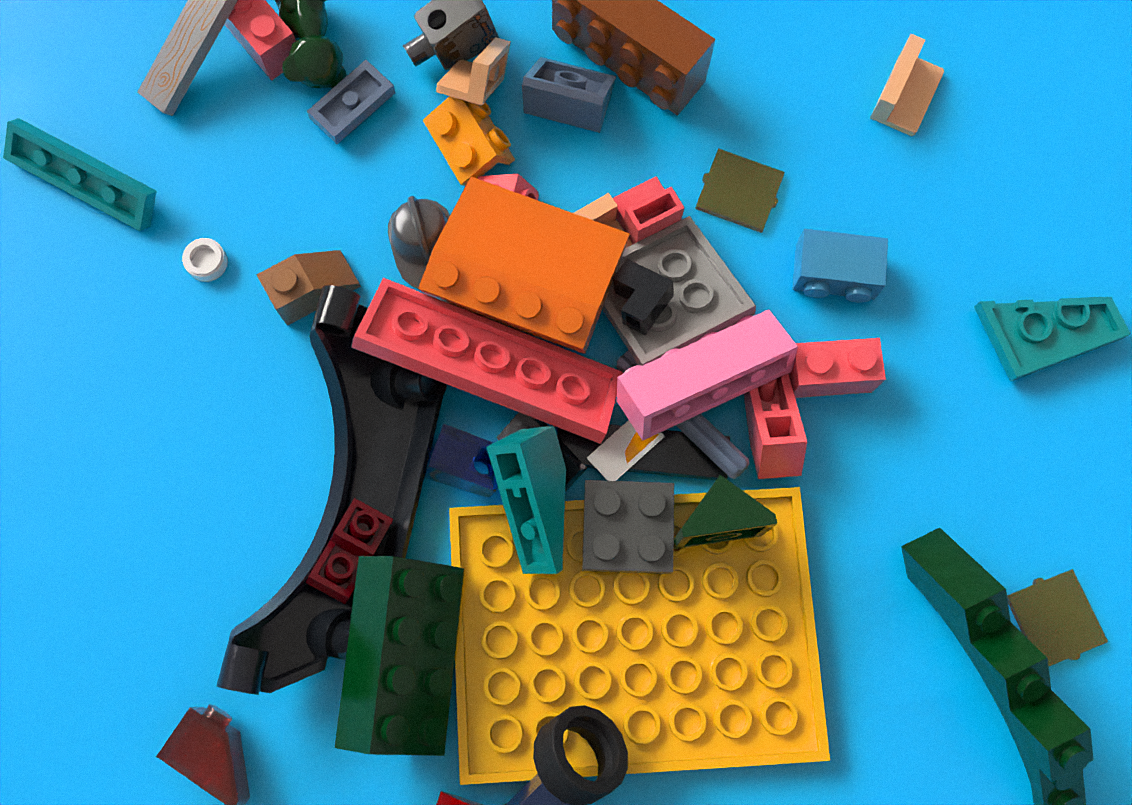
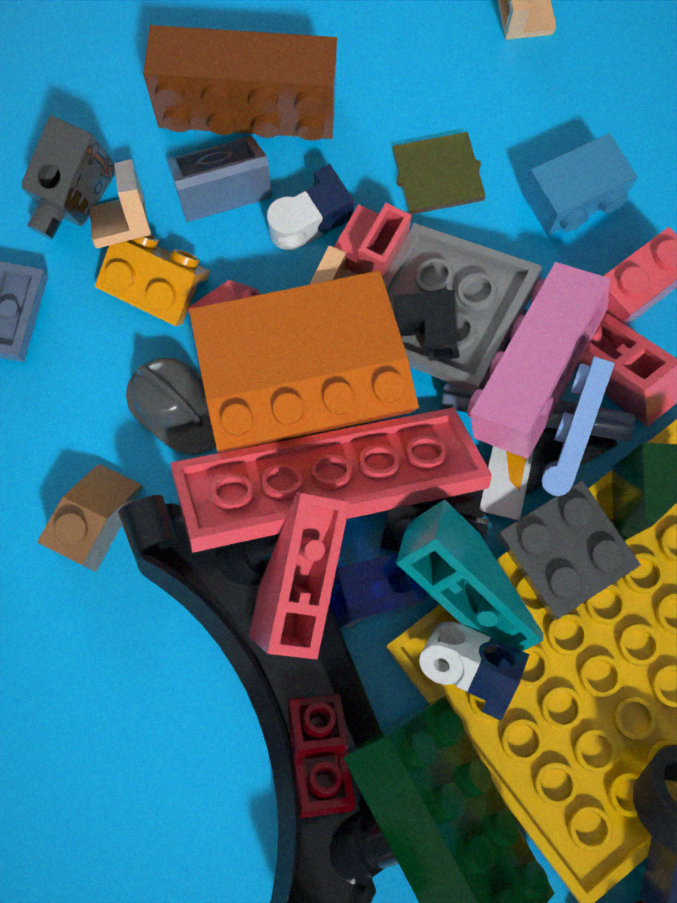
camera: 35 degrees left, 0 degrees up
(416, 414) = (300, 578): none -> coral slope
(497, 559) = (474, 664): none -> leg
(616, 161) = (310, 213): none -> leg
(694, 440) = (576, 427): none -> light blue plate

